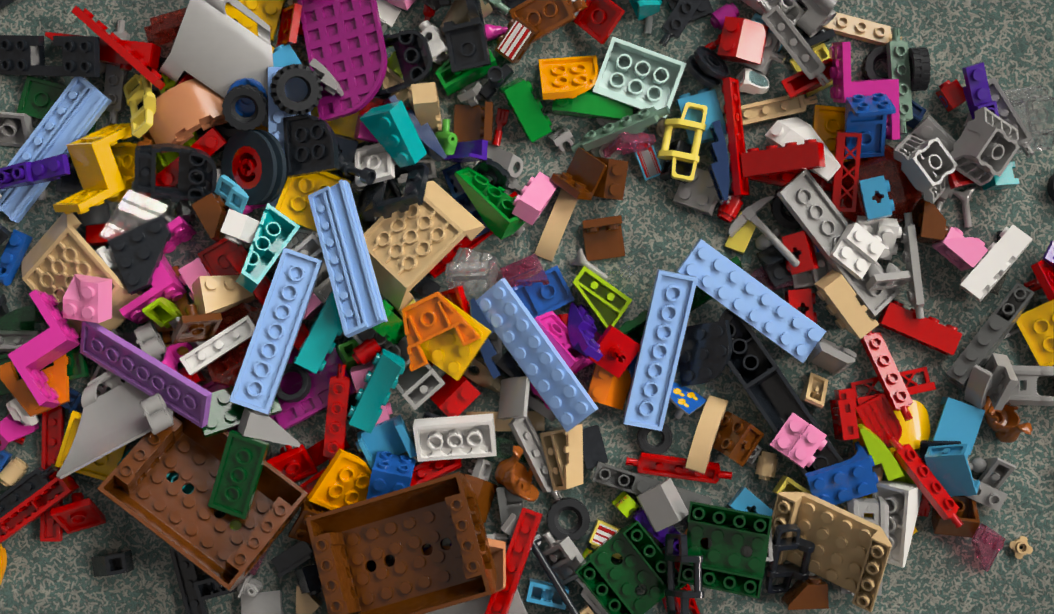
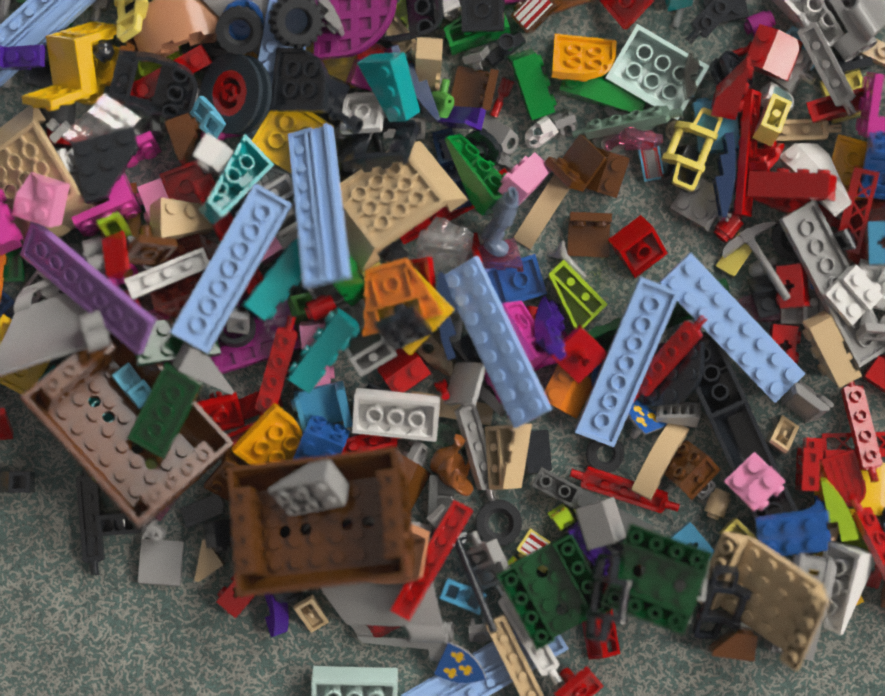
camera: 10 degrees right, 0 degrees up
(93, 230) = (58, 130): none -> light grey tile
(123, 150) = (104, 51): none -> black plate
(166, 338) = (115, 255): none -> red slope
(204, 454) = (132, 385): none -> medium azure slope
(292, 378) = (239, 322): none -> light grey tile
(387, 524) = (311, 489): none -> light grey slope
(446, 356) = (403, 326): none -> black plate
(492, 403) = (441, 386): none -> red piece
(500, 266) = (475, 245): none -> red piece
(521, 237) = (504, 215): none -> sand blue piece
(542, 153) = (540, 133): none -> white rock
(650, 240) = (638, 246): none -> red slope
(670, 69) = (690, 70): none -> clear smoke slope
(699, 336) = (671, 355): none -> red plate
(709, 84) = (729, 92): none -> red slope
(725, 383) = (685, 414): none -> light grey slope
(753, 102) = (772, 119): none -> light yellow brick
(753, 136) = (766, 156): none -> red slope
(841, 201) = (845, 239): none -> black slope

